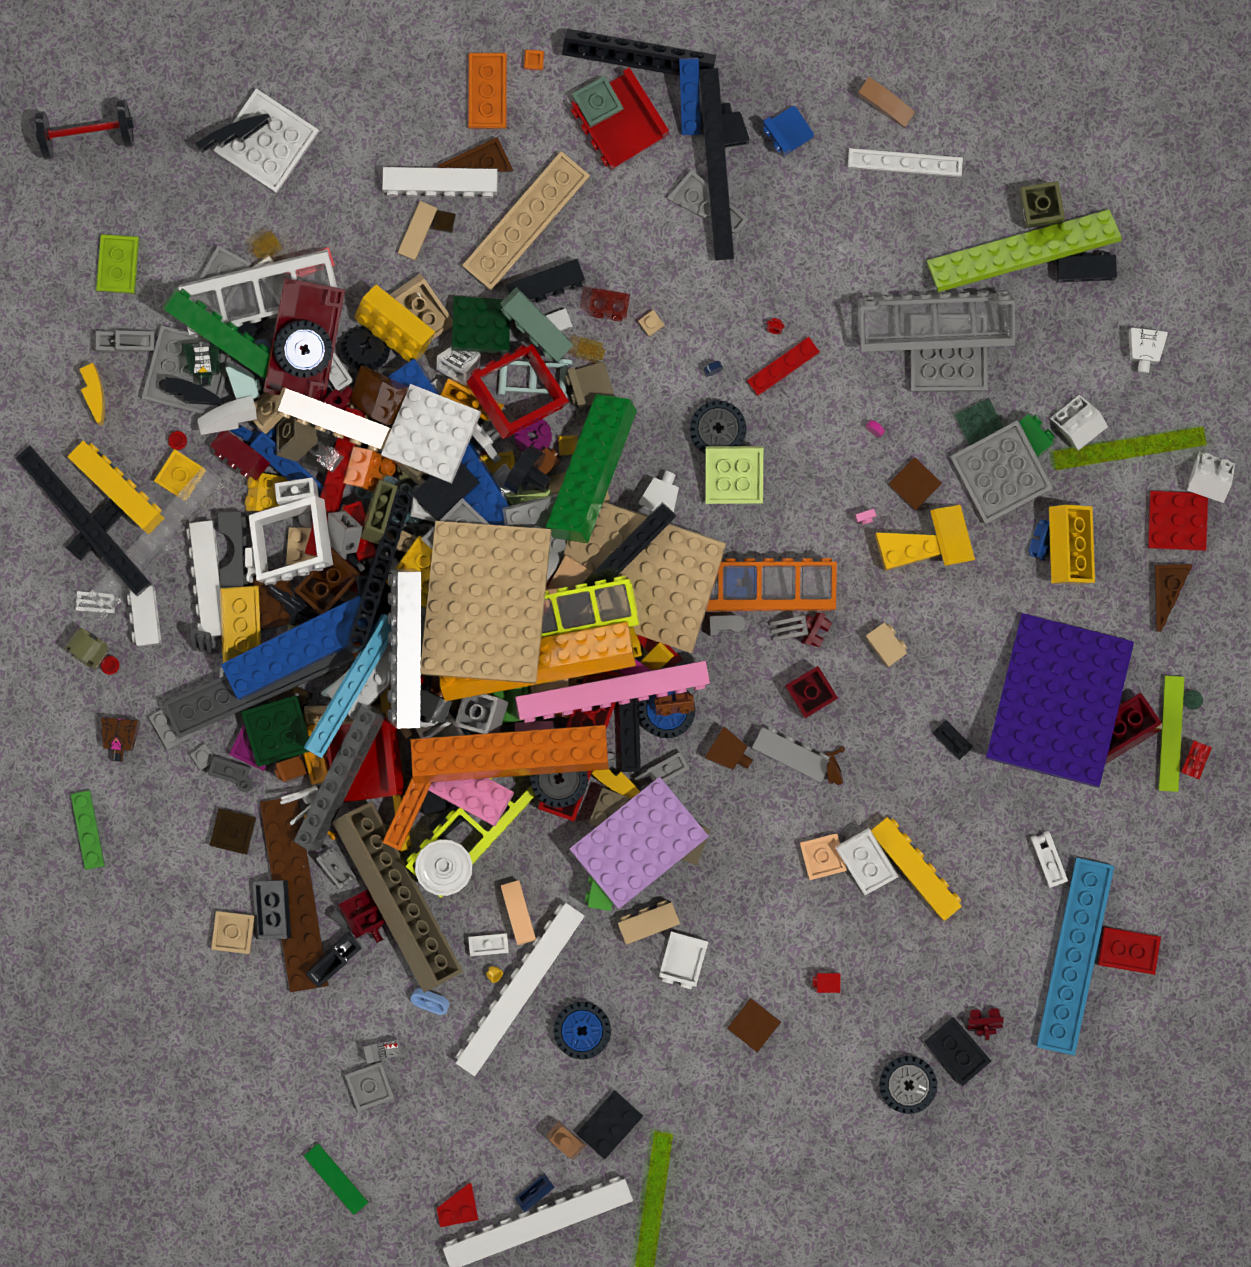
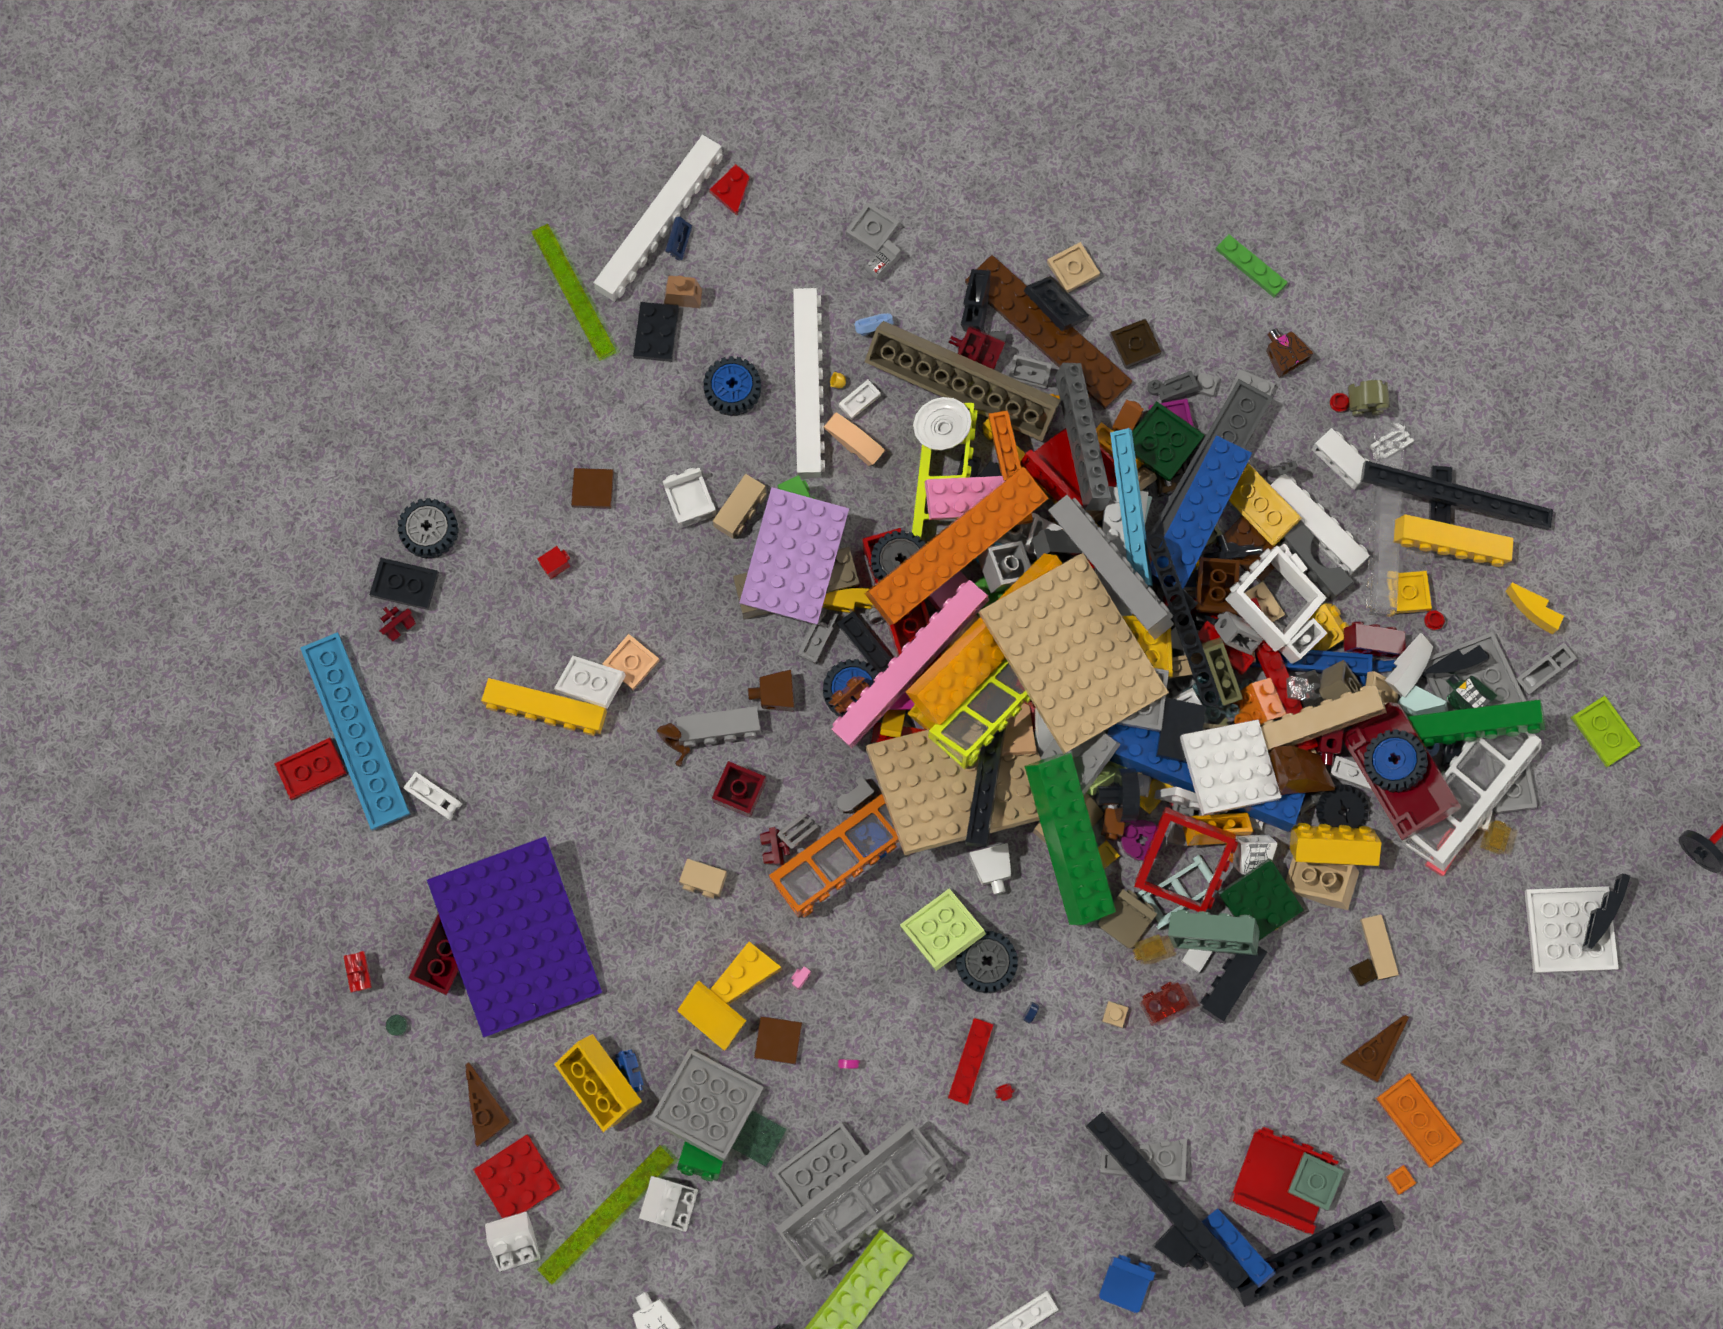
camera: 140 degrees right, 10 degrees down
(308, 797) = (1098, 411): white plant -> none
(336, 1179) = (846, 144): green tile -> none
(440, 181) = (1395, 1004): white brick -> none
(526, 221) = (1293, 1026): tan plate -> none
(952, 739) = (587, 839): black hinge -> none
(1171, 733) = (396, 981): lime tile -> none

